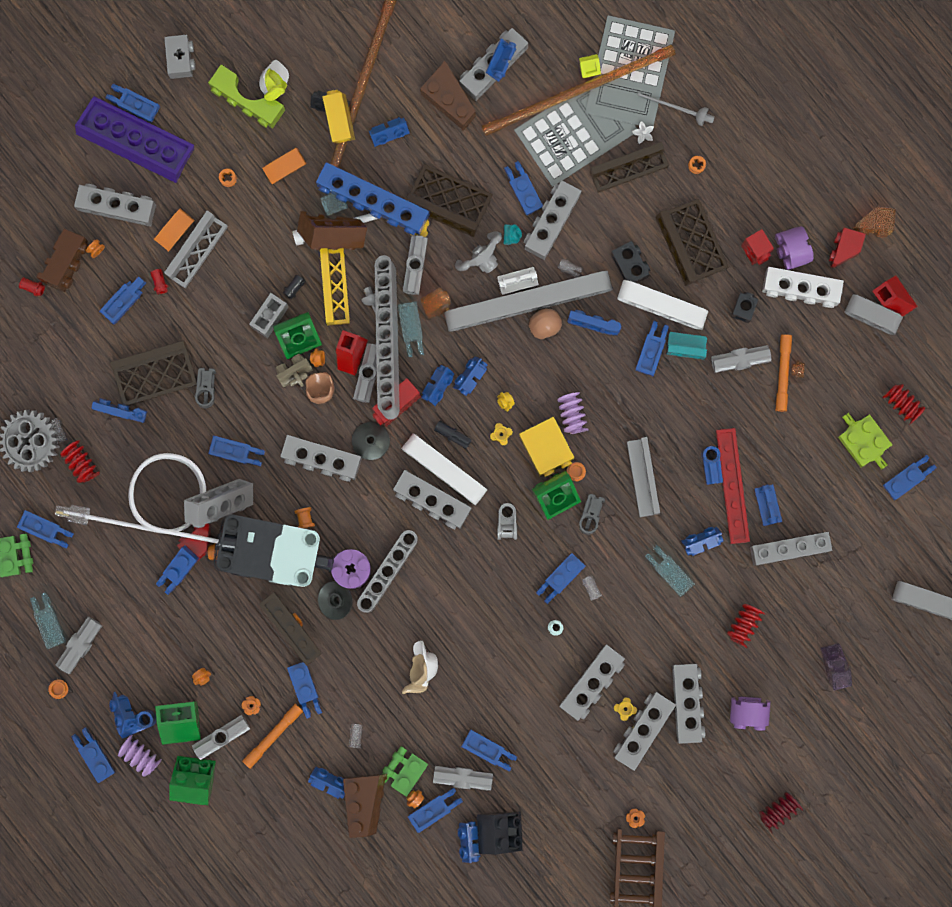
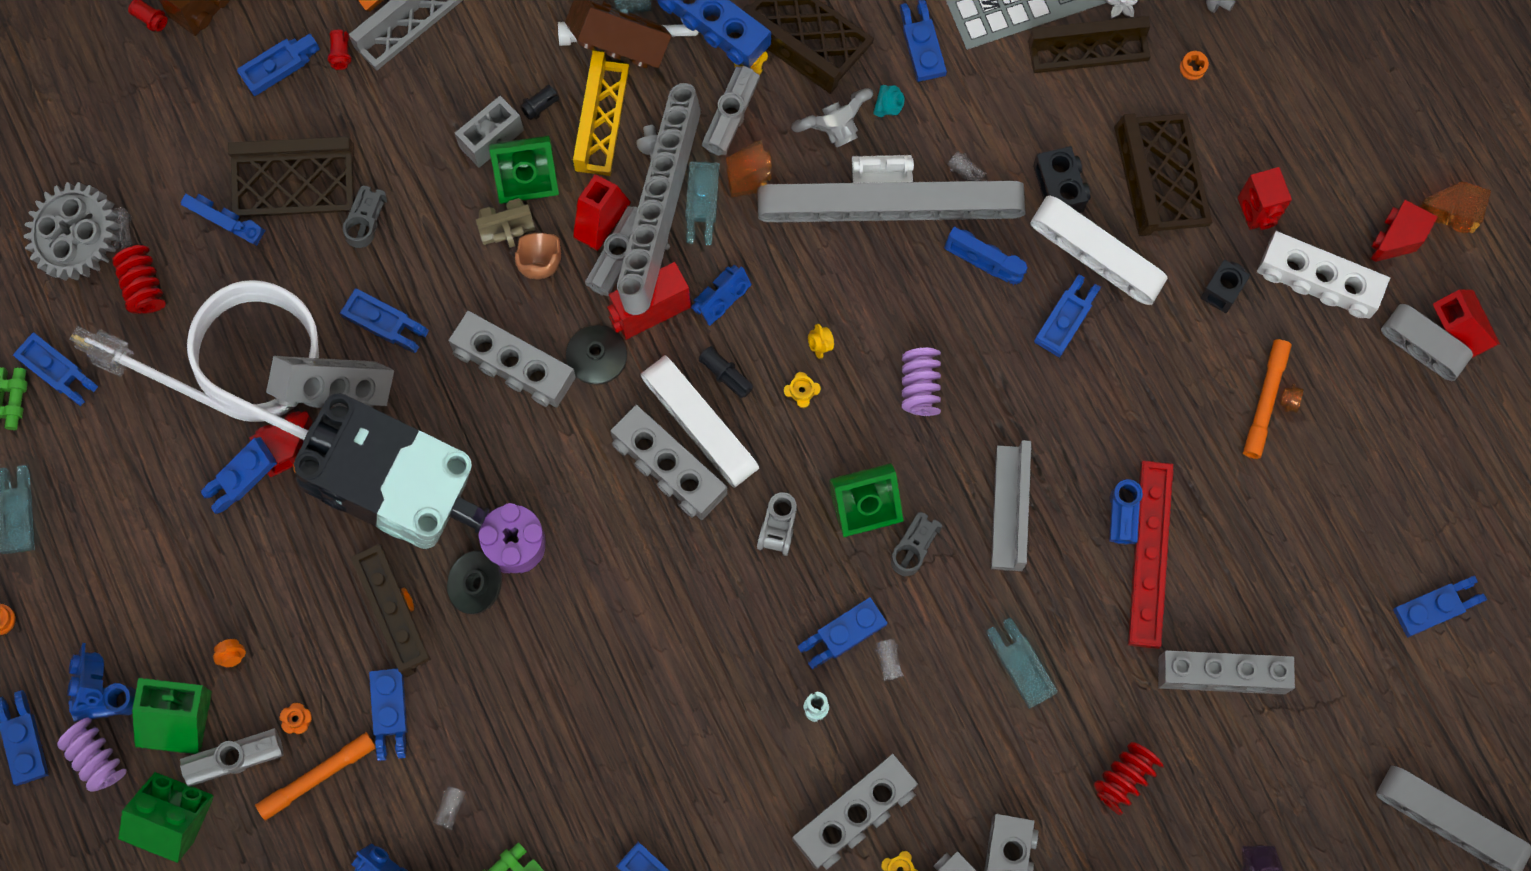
camera: 10 degrees right, 10 degrees down
(79, 645) = (51, 558): light grey piece -> none
(304, 518) = (462, 439): orange bush -> none
(317, 358) = (547, 212): orange plate -> none
(386, 581) = (573, 542): light grey beam -> none
(423, 669) = (587, 725): hair -> none
(464, 381) = (766, 298): blue hinge -> none
(542, 247) = (930, 128): light grey brick -> none
(545, 323) = (909, 241): nougat hair -> none
(547, 447) = (868, 424): yellow brick -> none
(576, 471) = (908, 473): orange plate -> none
(687, 345) = (1122, 324): teal panel -> none
(710, 537) = (1096, 624): blue hinge -> none
(741, 359) = (1204, 361): light grey piece -> none
(768, 505) = (1202, 595): blue hinge -> none
(794, 247) = (1322, 212): medium lavender brick -> none
(865, 441) = (1377, 532): lime plate -> none
(904, 403) = (1452, 486): red piece -> none

